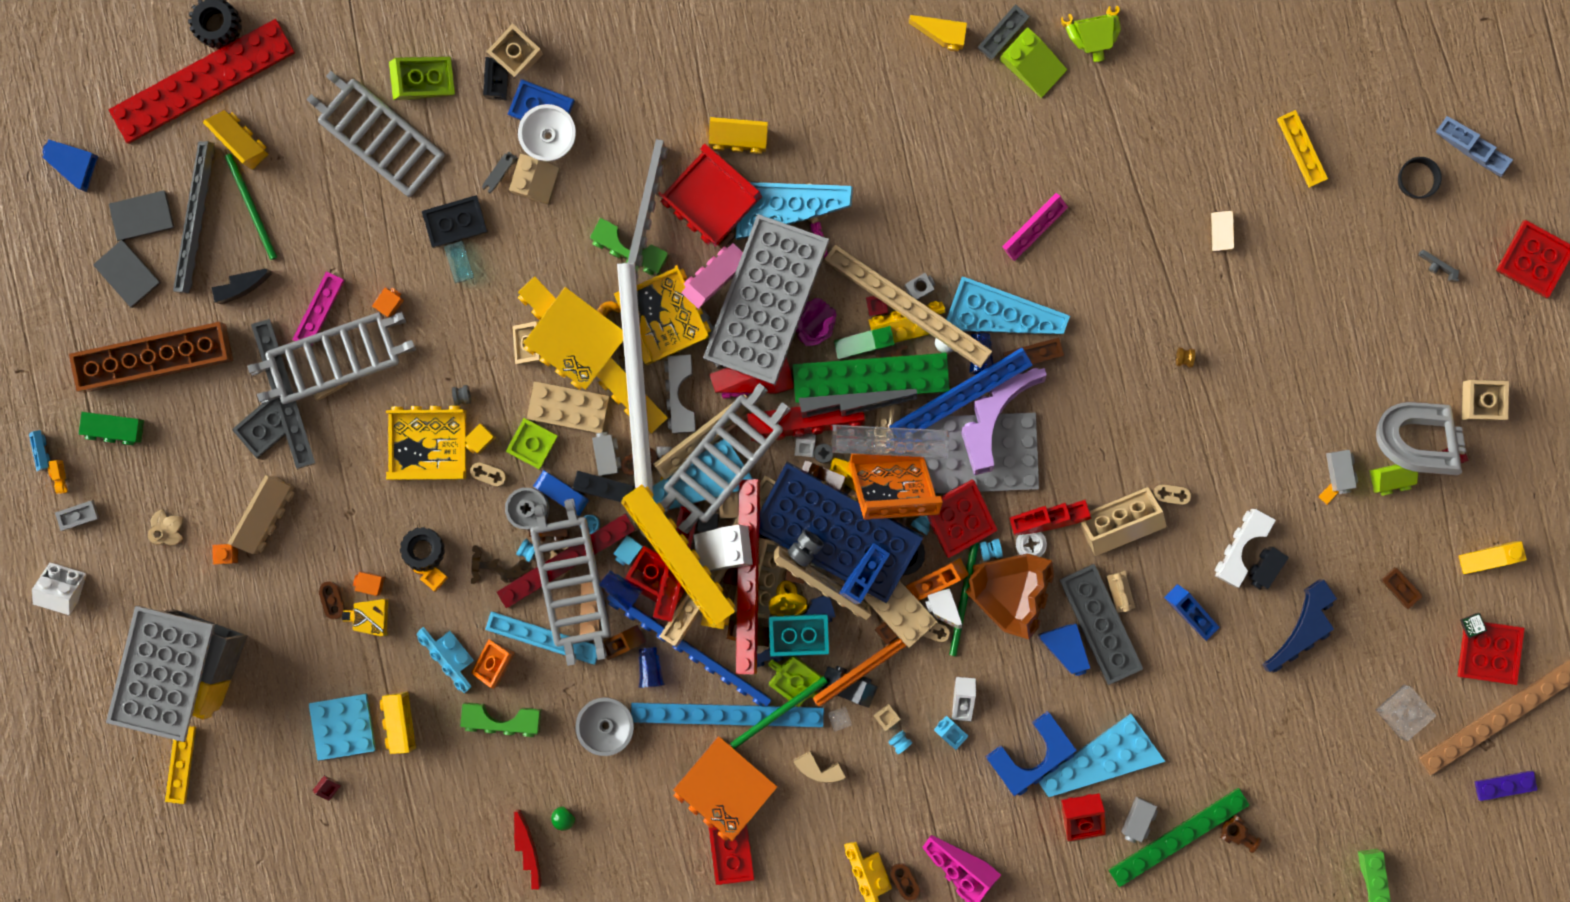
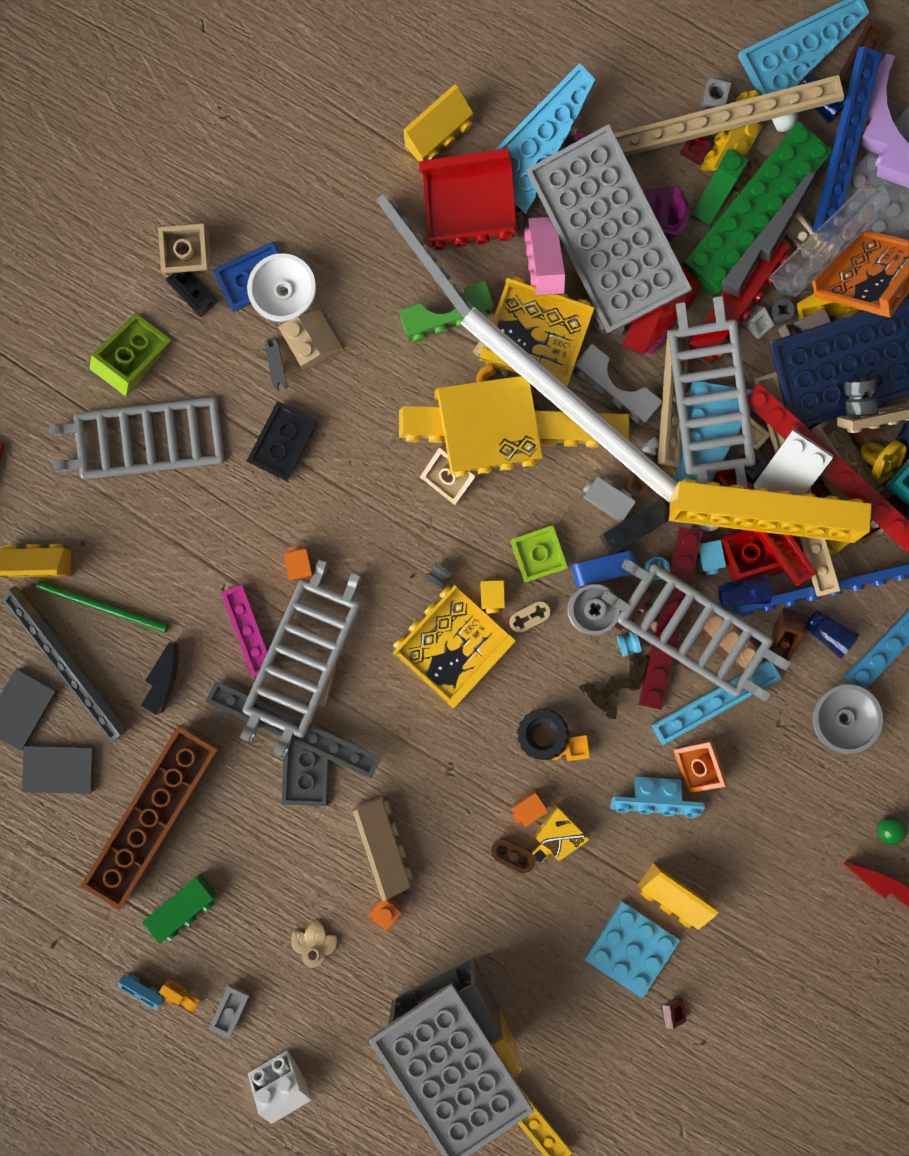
camera: 50 degrees left, 0 degrees up
(459, 262) = (321, 470): clear light blue plate -> none
(475, 717) = (776, 785): bright green arch -> none
(568, 407) = (535, 494): tan plate -> none

